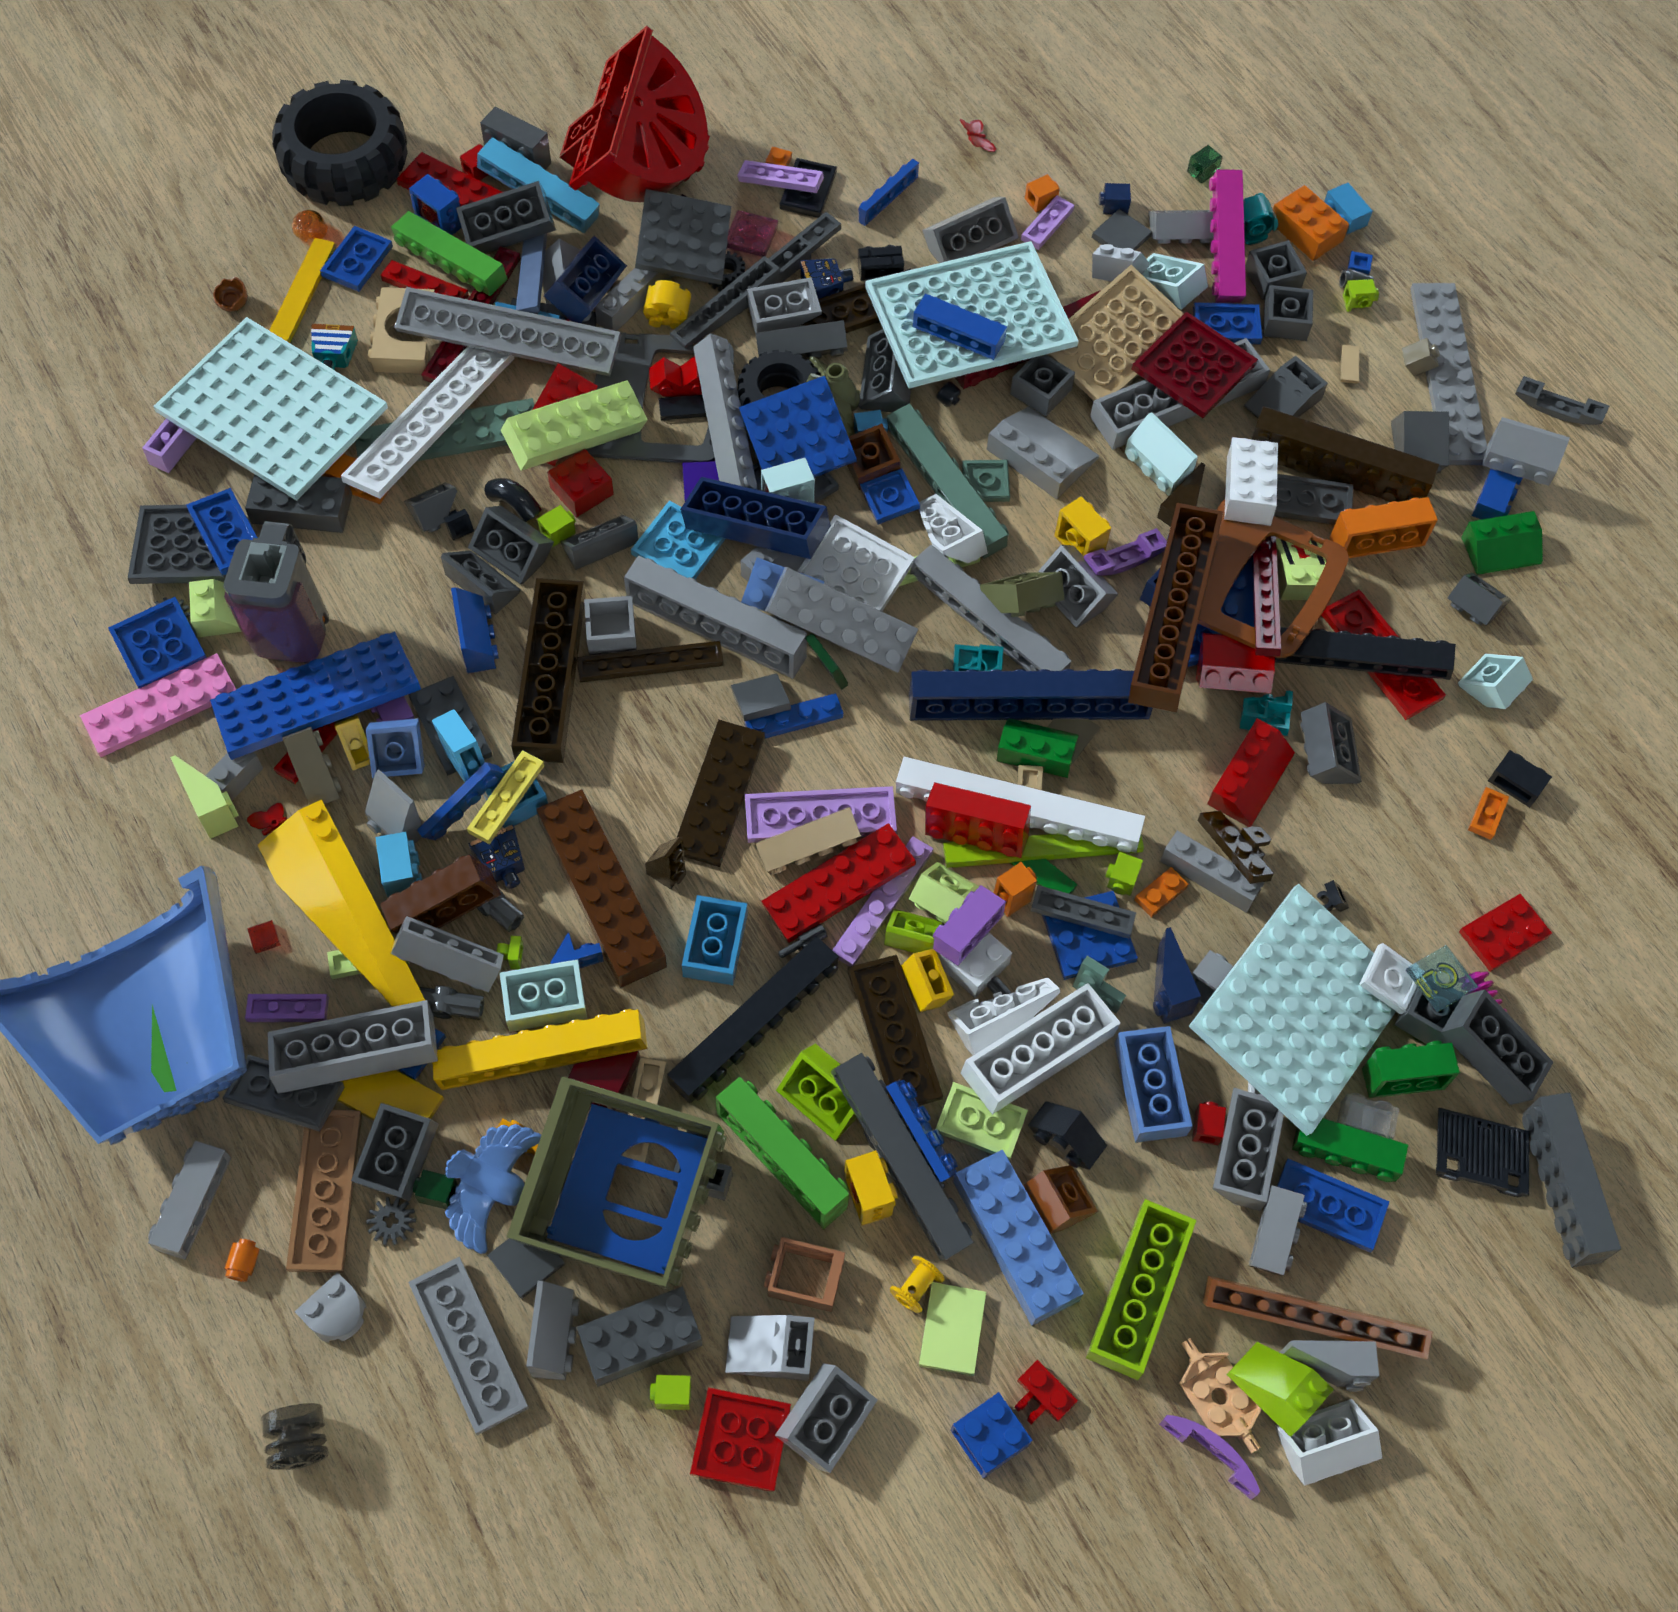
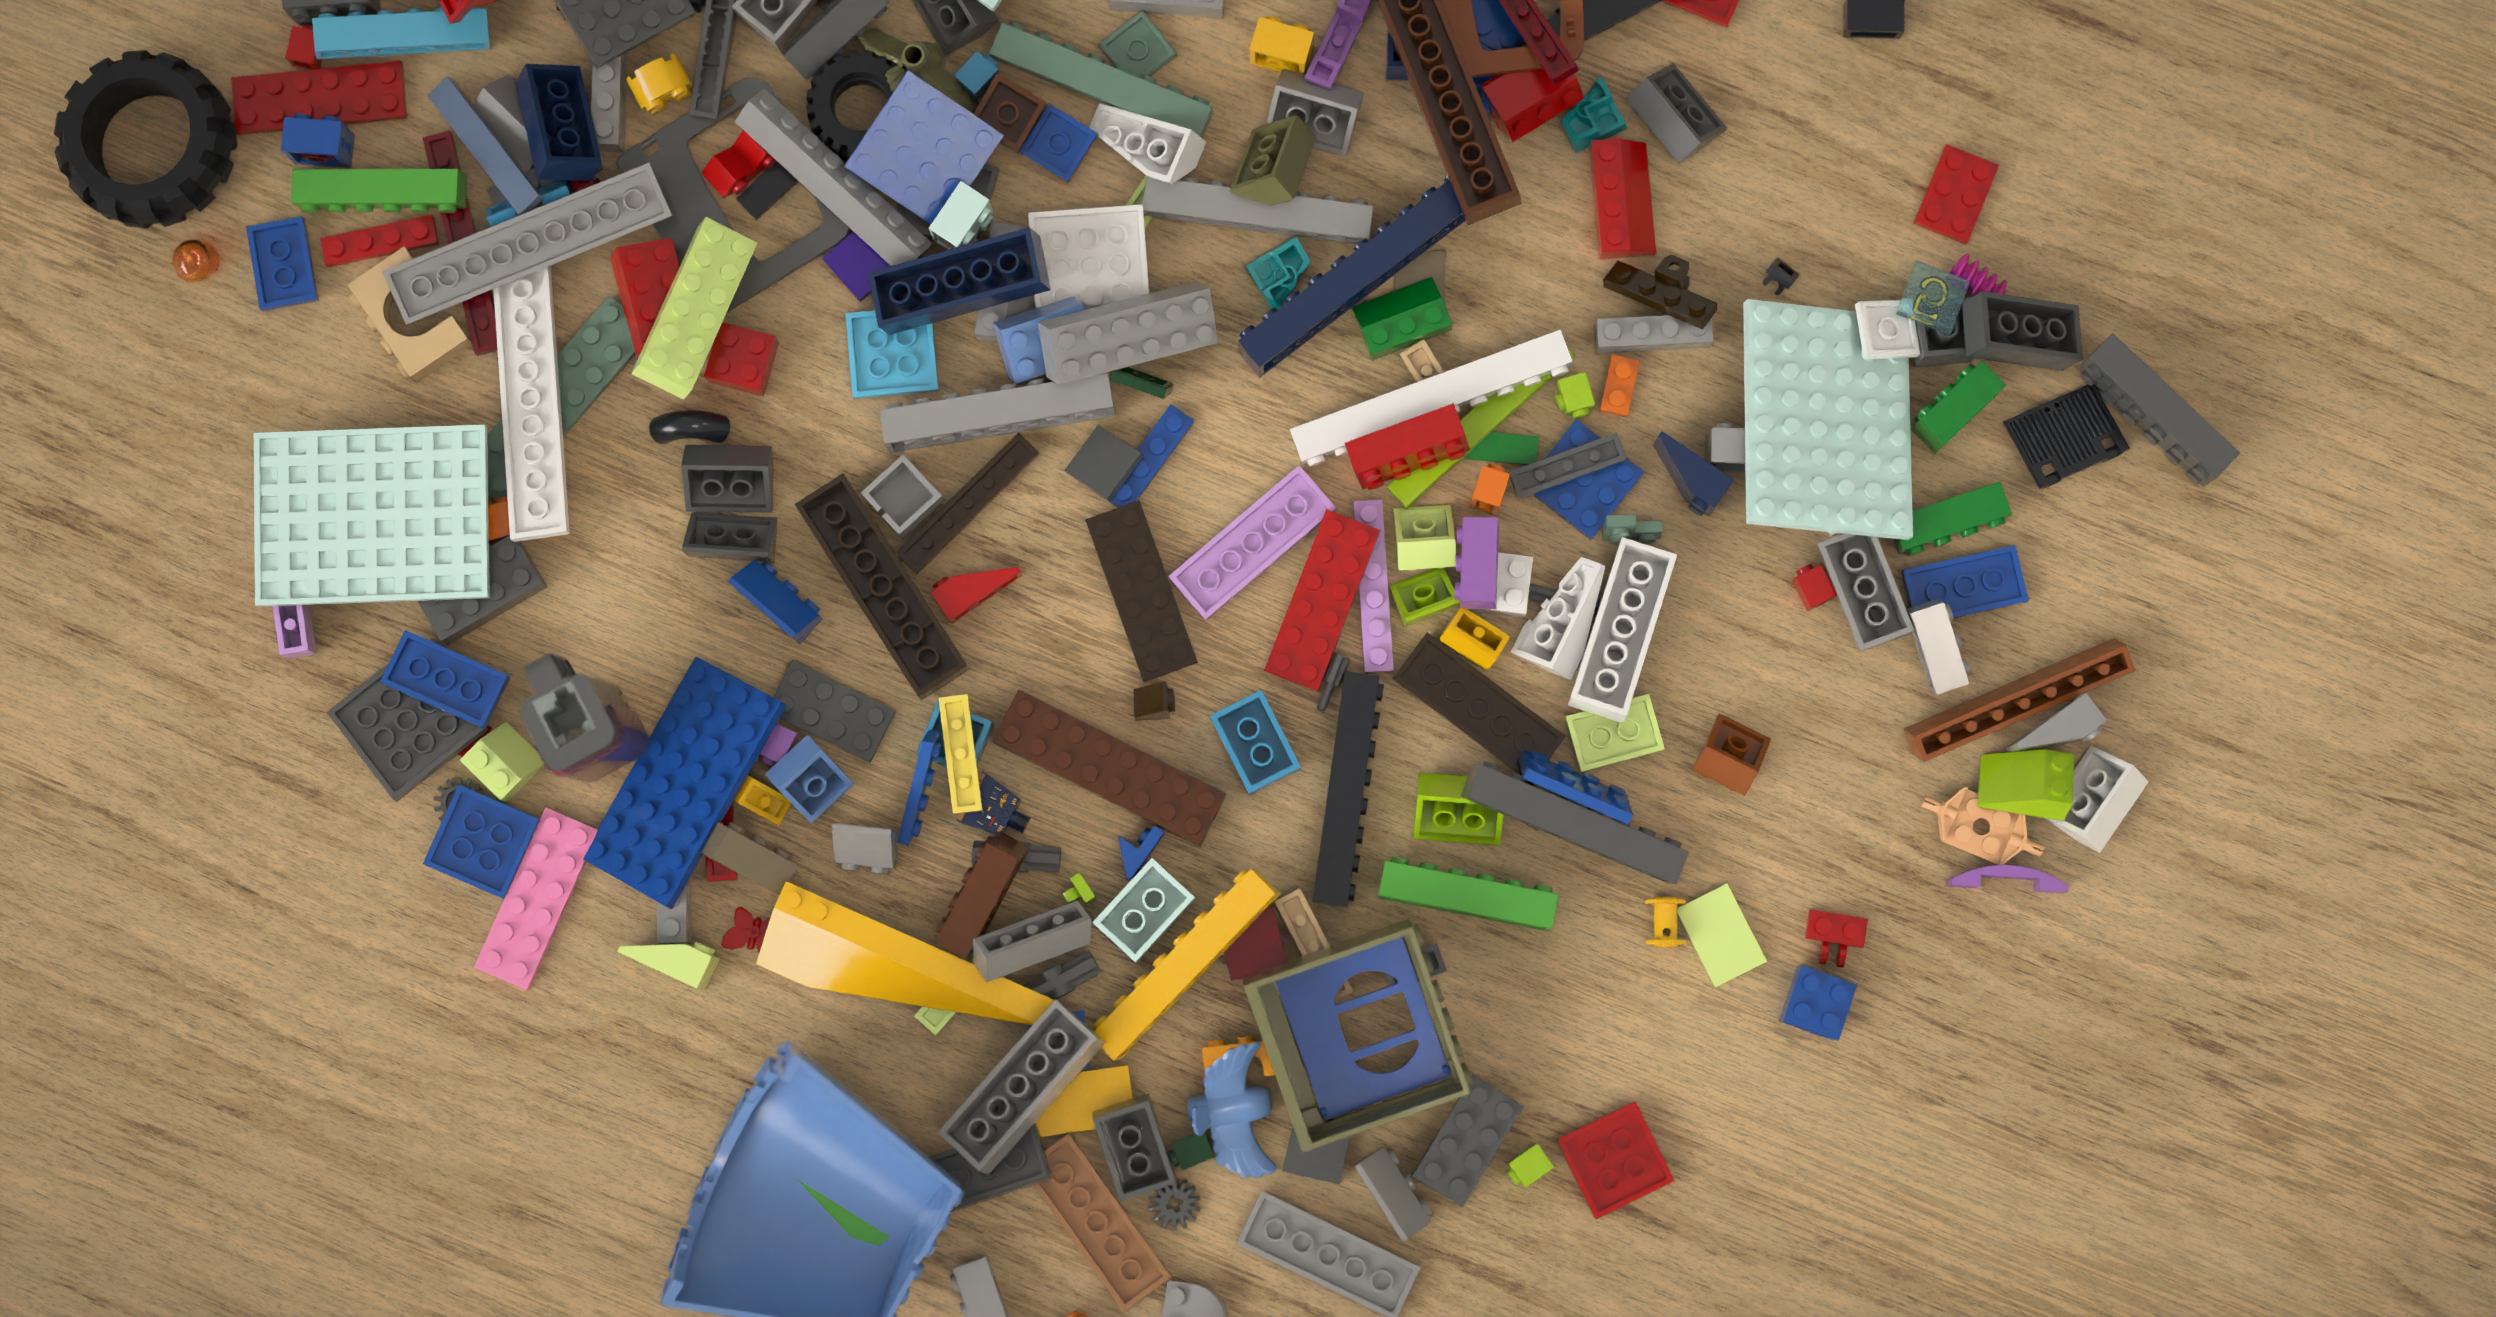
camera: 30 degrees left, 20 degrees up
(230, 294) = (193, 407): dark orange hair -> none
(264, 936) = (840, 1043): clear red tile -> none
(286, 1007) = (921, 1092): medium lavender plate -> none
(302, 289) = (258, 345): yellow tile -> none
(333, 344) = (353, 389): torso -> none
(397, 862) = (912, 891): medium azure brick -> none
(432, 506) = (615, 493): dark grey slope -> none
(458, 524) = (658, 494): black tile -> none
(458, 744) = (878, 738): medium azure brick -> none
(506, 218) = (408, 105): dark grey brick -> none
(557, 524) = (757, 423): lime brick -> none
(600, 541) = (810, 406): dark grey slope -> none
(602, 712) = (967, 591): none -> red slope
(770, 1346) = (1582, 1067): light grey slope -> none
(808, 839) = (1264, 582): tan brick -> none
(808, 1250) = (1593, 974): nougat window -> none
(826, 1417) = (1675, 1092): light grey brick -> none
(869, 1187) = (1566, 869): yellow piece -> none
(1017, 1237) = (1720, 816): medium blue brick -> none
(1069, 1133) = (1700, 692): black brick -> none
(1141, 1290) = (1857, 784): lime brick -> none
(1152, 1084) = (1741, 588): medium blue brick -> none
(1368, 1115) = (1947, 479): clear brick -> none
(1488, 813) = (1866, 77): orange plate -> none

